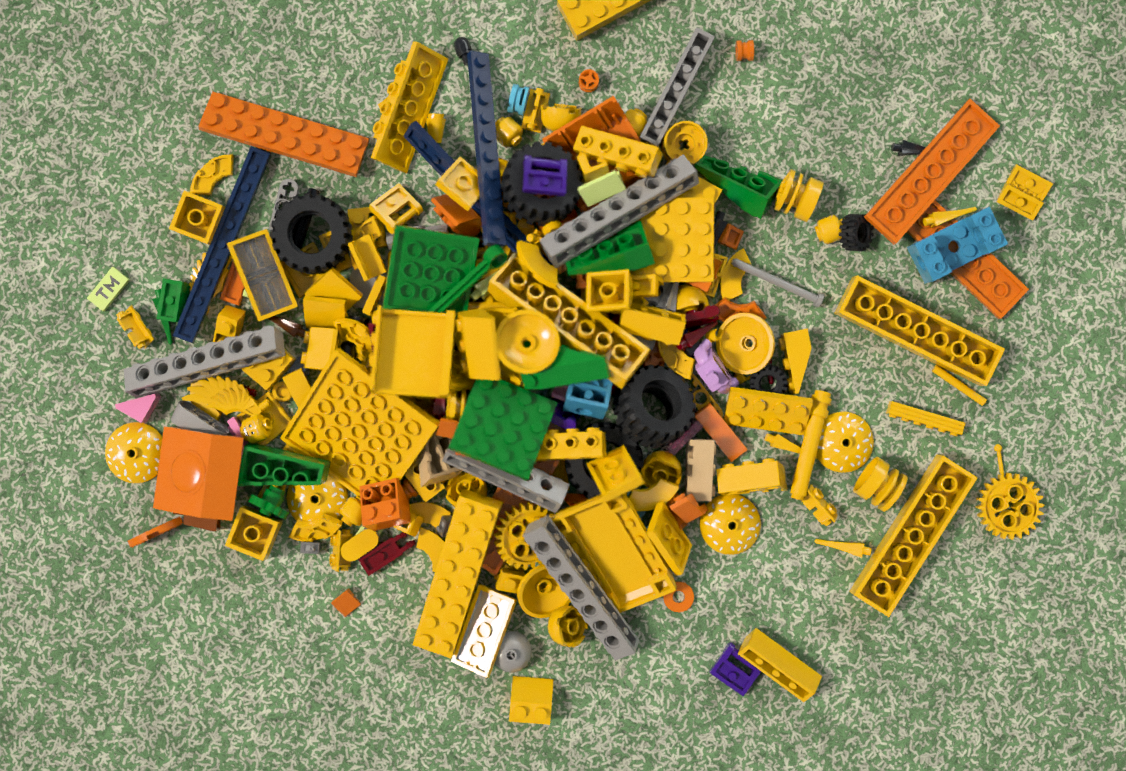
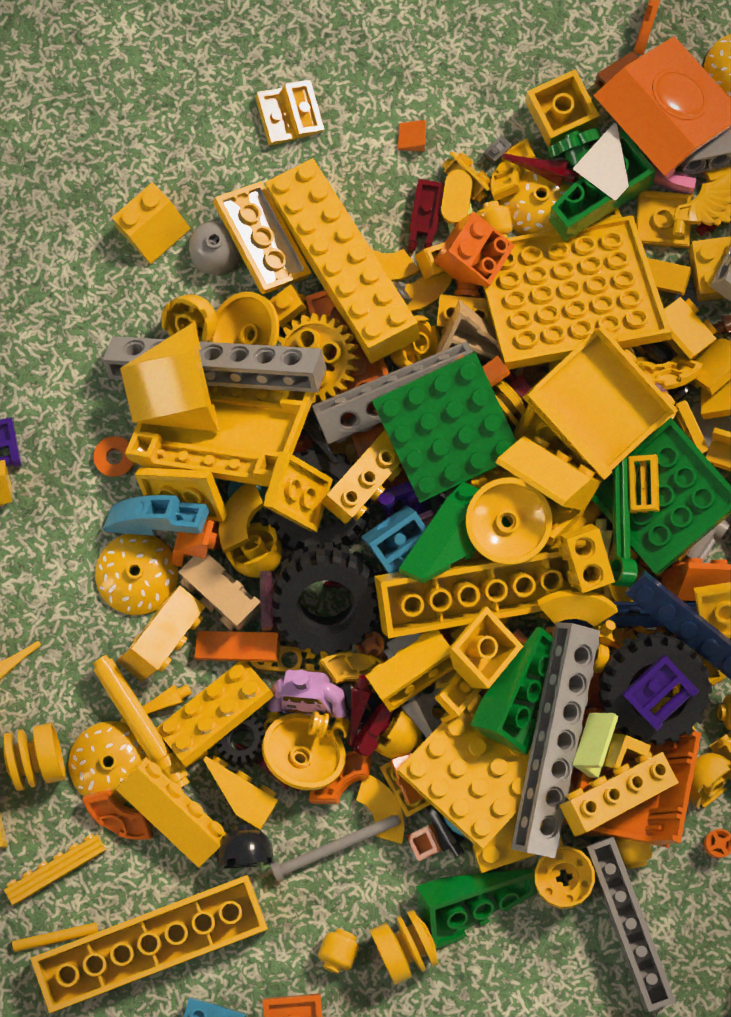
camera: 135 degrees right, 10 degrees down
(256, 428) = (663, 199): yellow head -> none
(267, 477) = (605, 164): none -> white sticker
(281, 392) = (677, 255): yellow tile -> none
(296, 505) = (549, 169): none -> dark red piece
(395, 684) = (289, 112): none -> slope
(431, 281) = (644, 507): none -> yellow tile
(504, 280) = (592, 555): none -> yellow brick
(570, 498) = (313, 435): none -> black piece
(617, 601) = (169, 385): none -> yellow wedge
(692, 542) = (156, 512): none -> dark azure slope
(723, 349) = (318, 724): none -> yellow bush
(824, 327) = (244, 848): none -> black cylinder
(825, 512) = (57, 679): yellow hinge -> none
(841, 383) = (172, 811): none -> yellow brick
(855, 232) = (320, 966): black tyre -> none
(869, 415) = (116, 817): none -> orange tile

